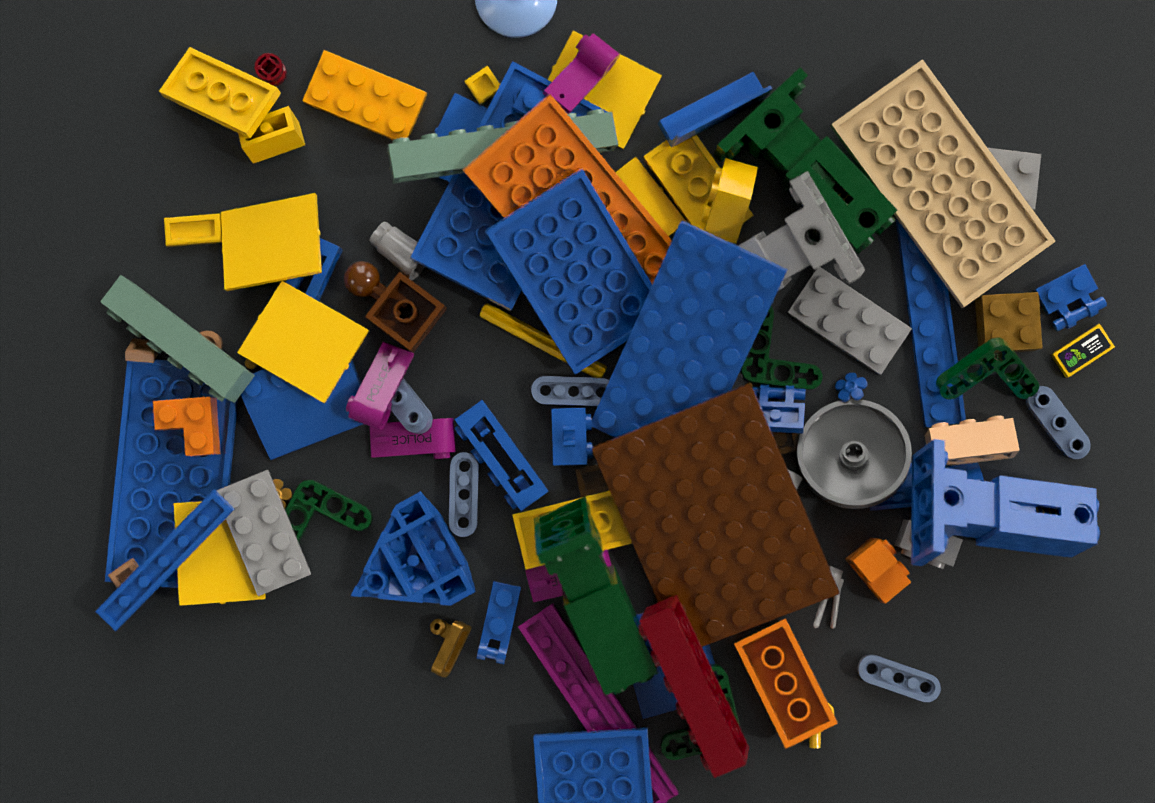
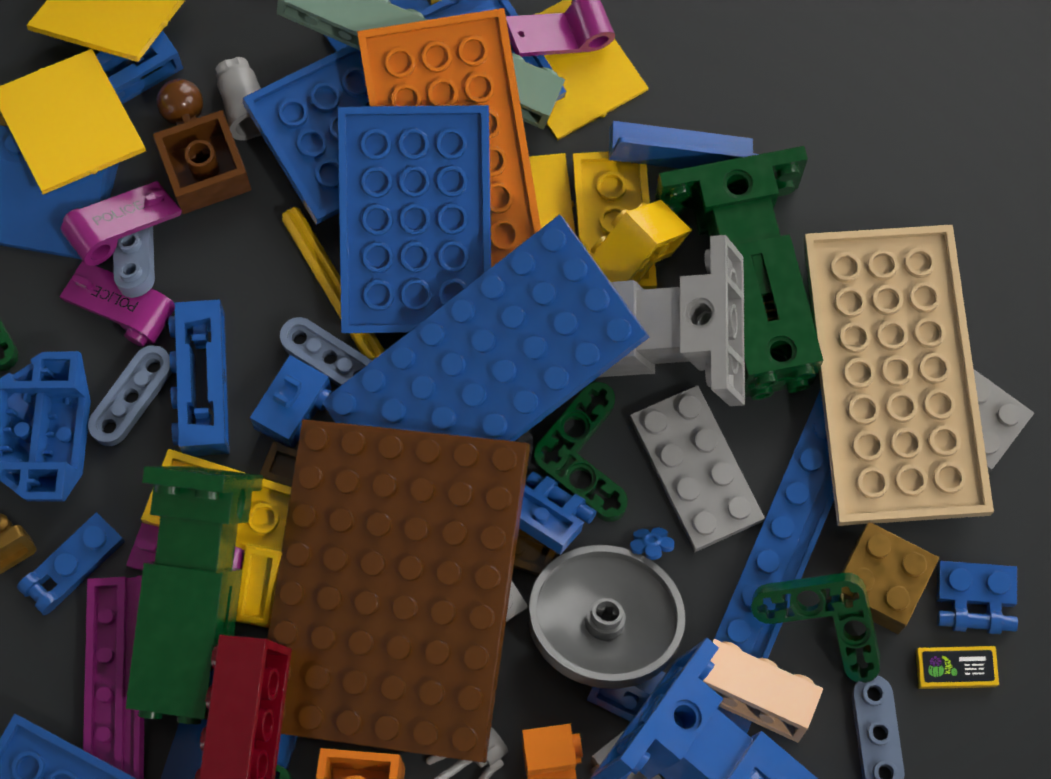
camera: 30 degrees right, 15 degrees down
(628, 565) = (258, 584): none -> yellow tile

